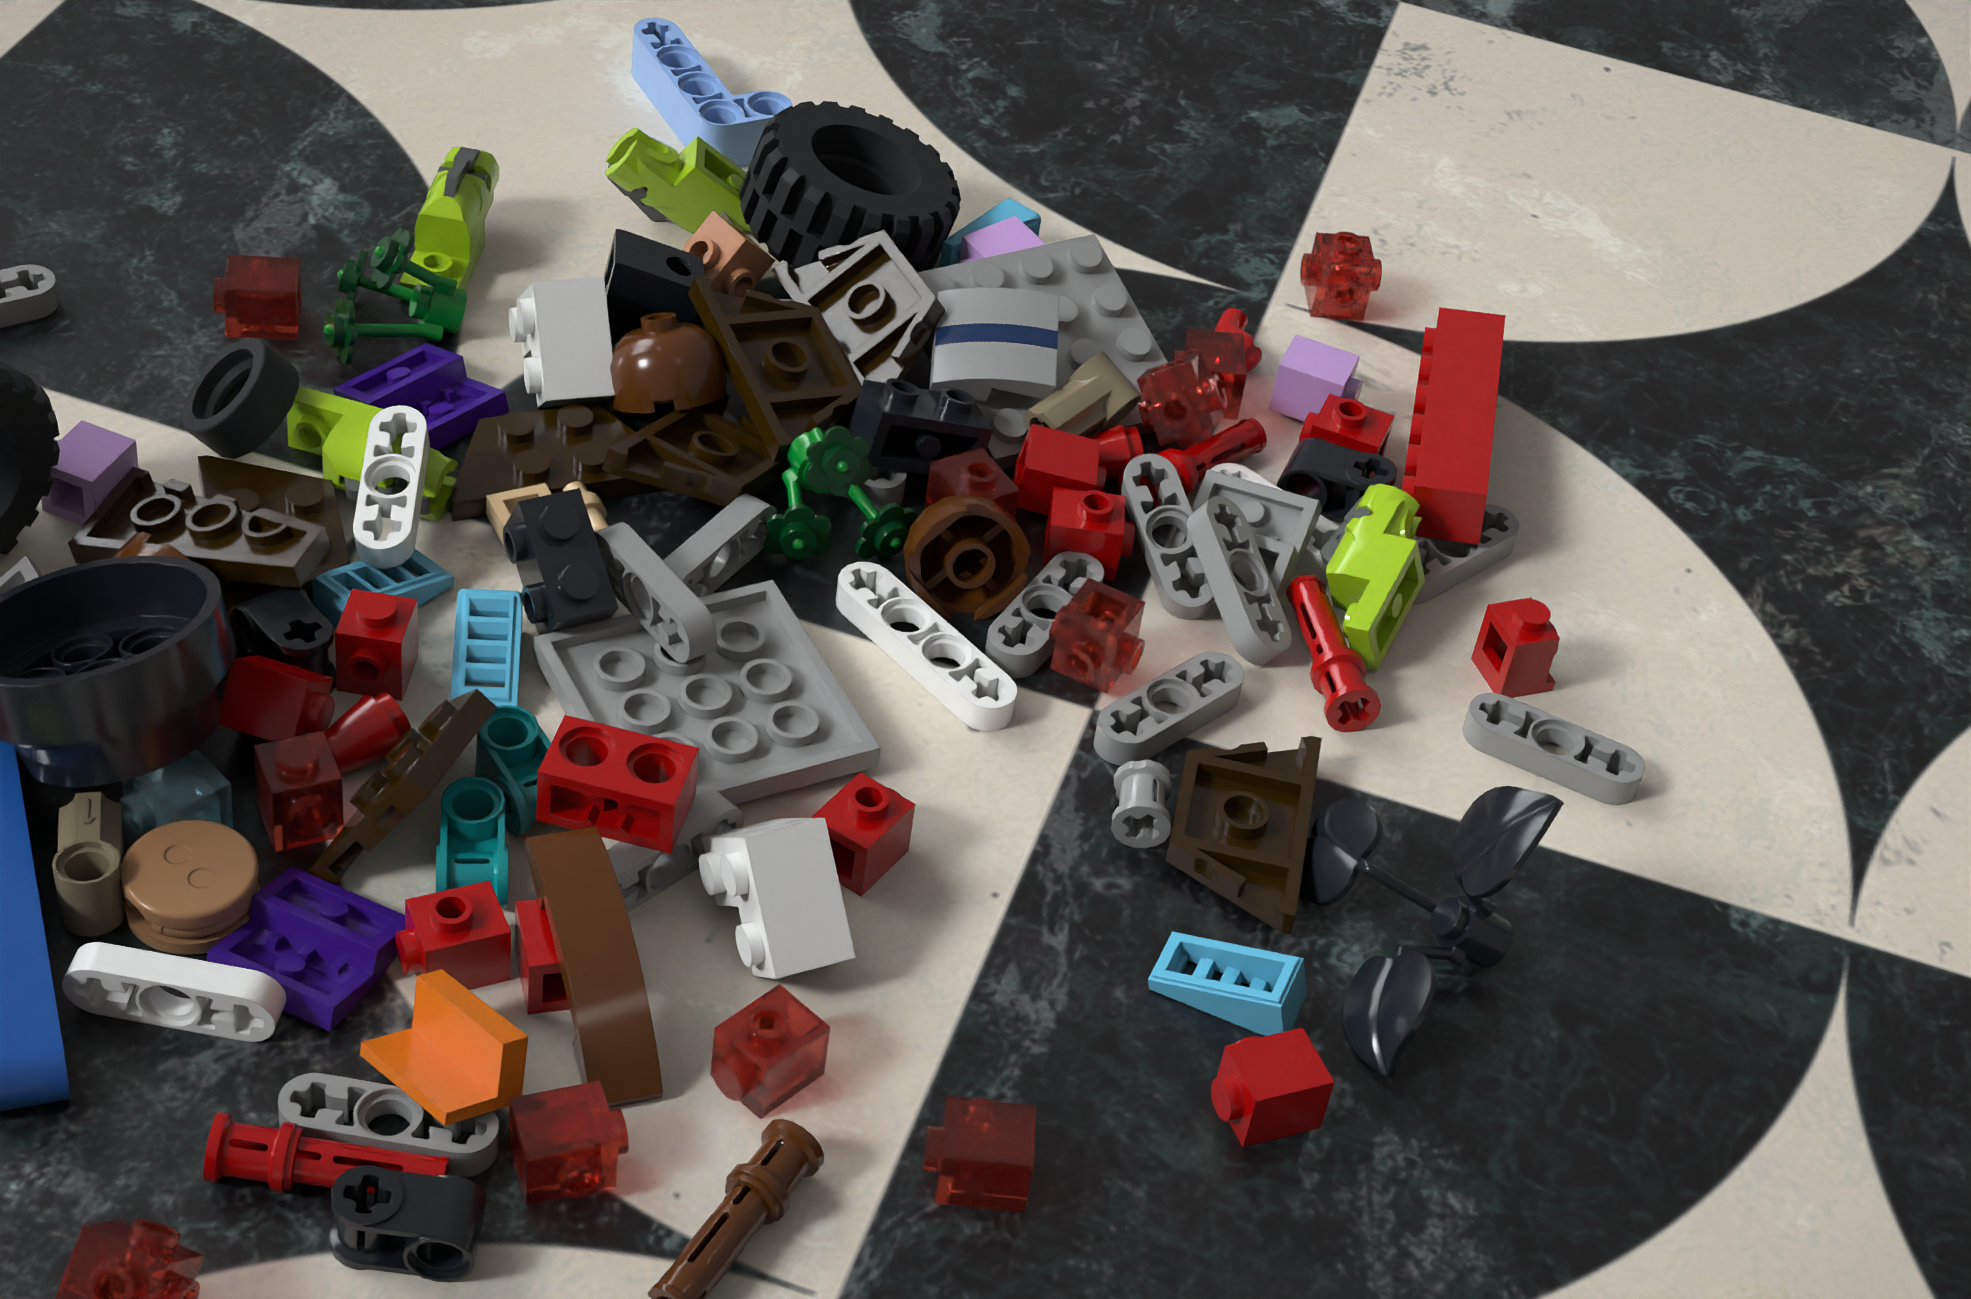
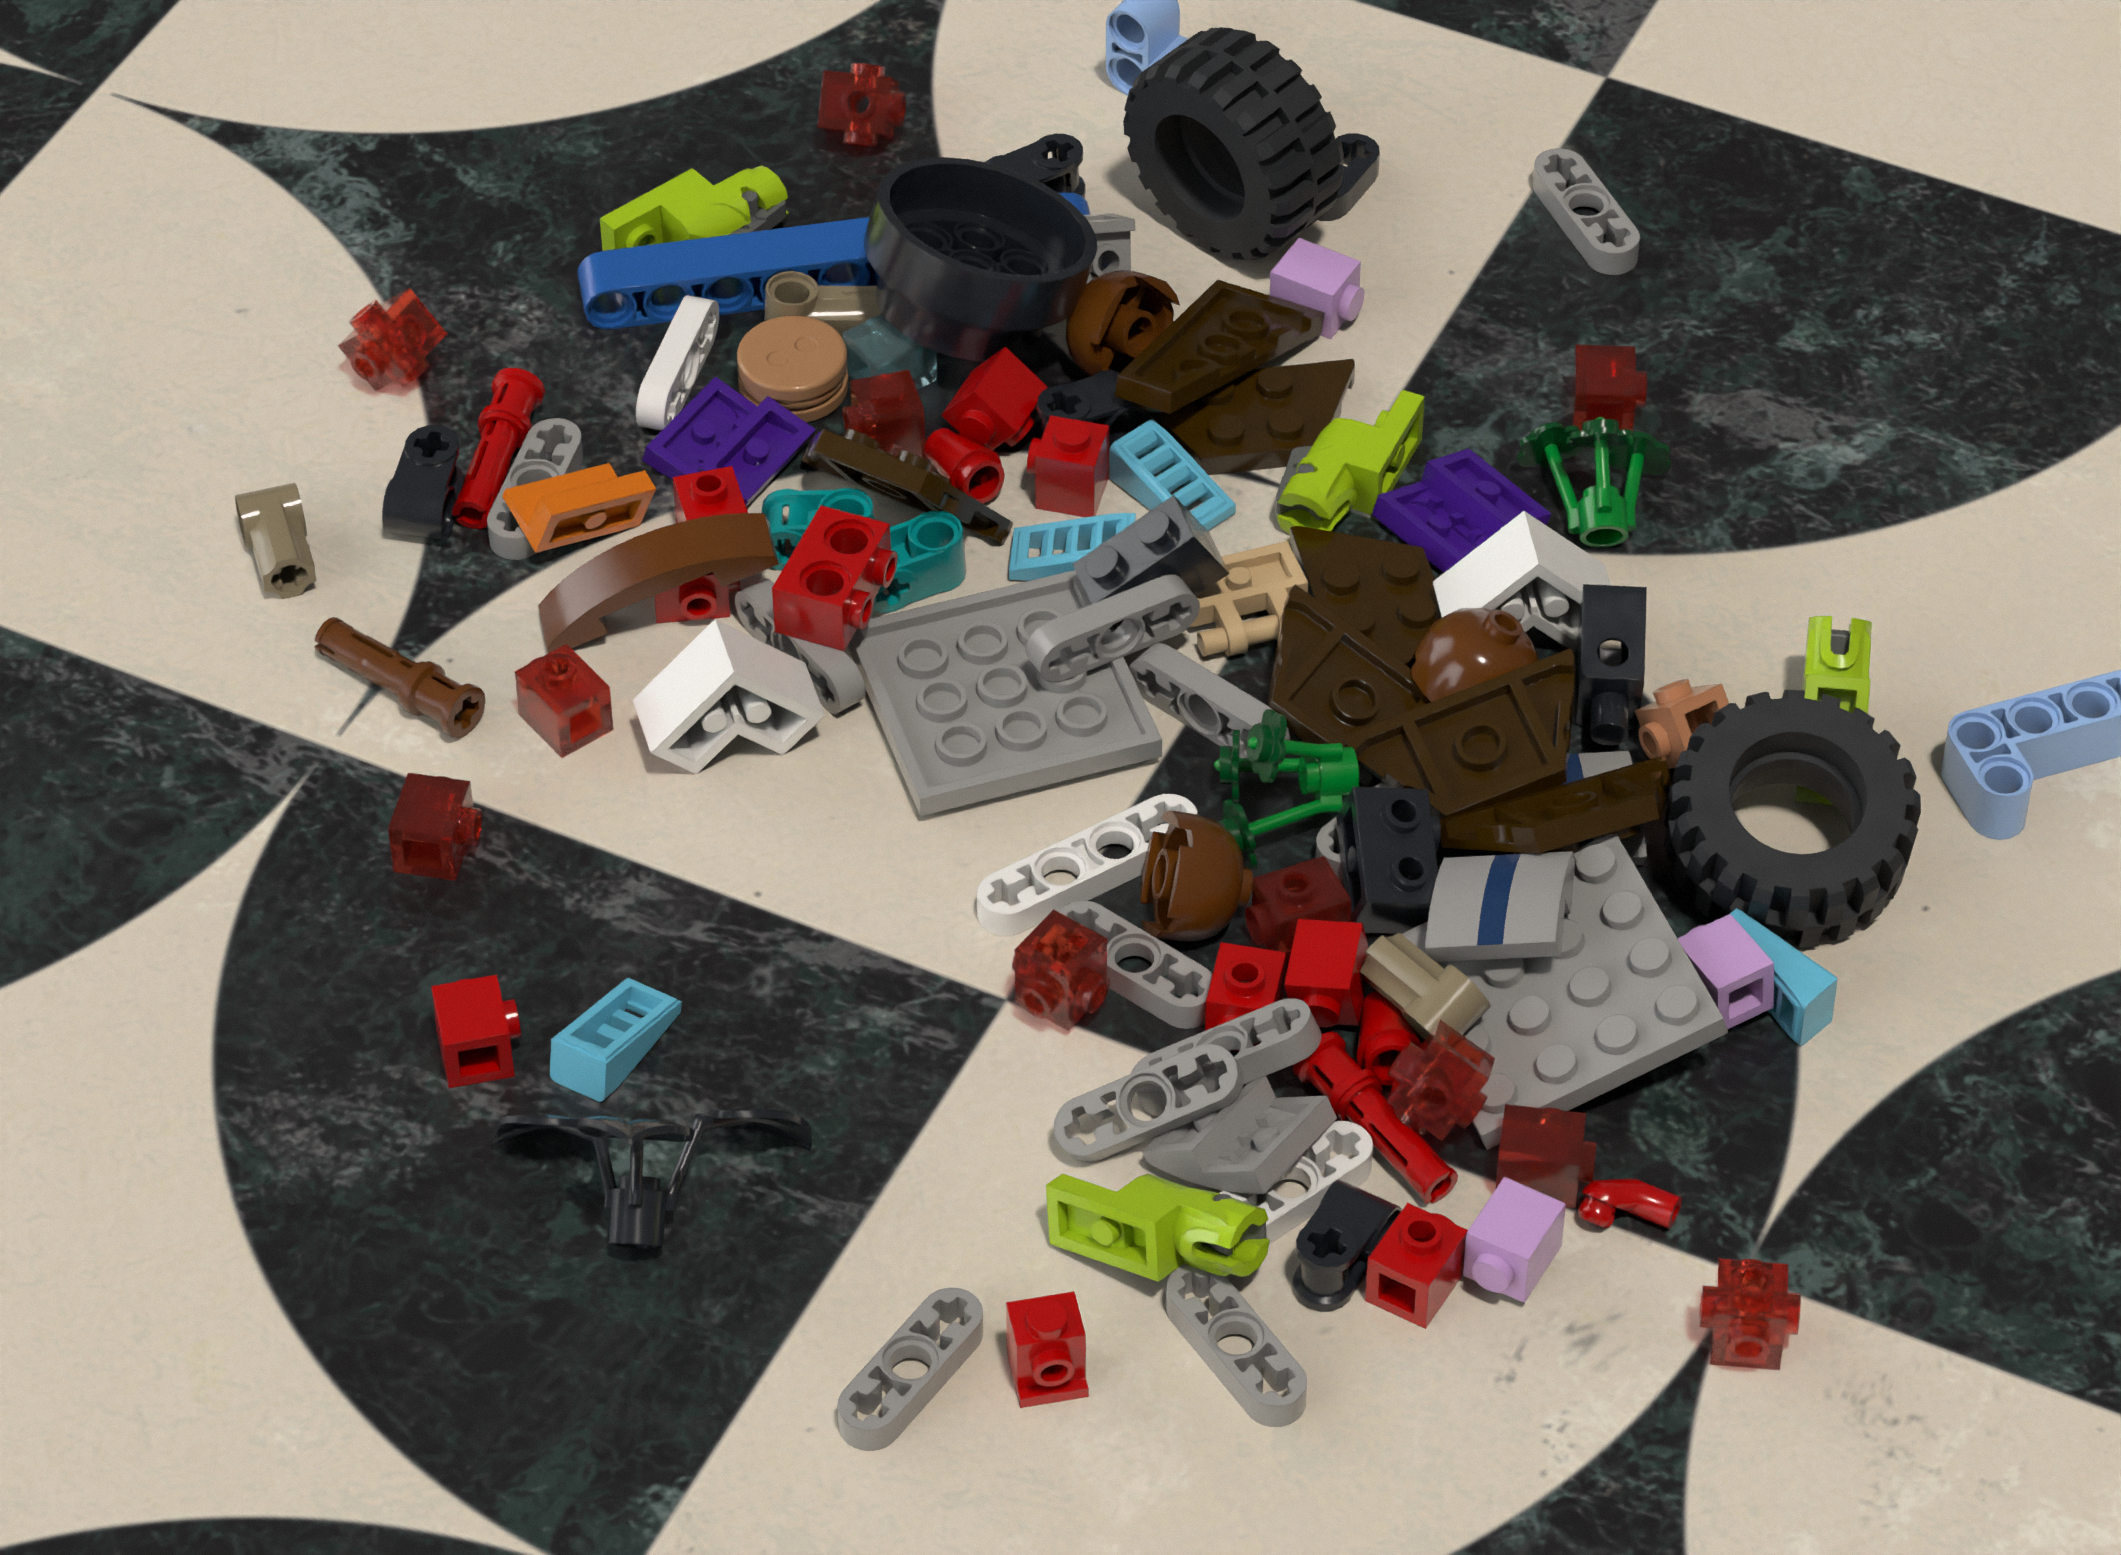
camera: 105 degrees right, 5 degrees up
(240, 398) = (1406, 362): black tyre -> none
(401, 507) = (1226, 455): white beam -> none
(454, 215) = (1737, 523): lime plate -> none
(565, 1142) = (485, 574): clear red brick -> none
(867, 831) = (813, 780): red brick -> none
(1147, 808) = (839, 992): light grey bush -> none
(1158, 729) = (988, 1072): light grey beam -> none
(1247, 825) = (817, 1064): dark brown wing -> none
(1335, 668) = (1023, 1186): red pin -> none
(1454, 424) = (1439, 1364): red brick -> none

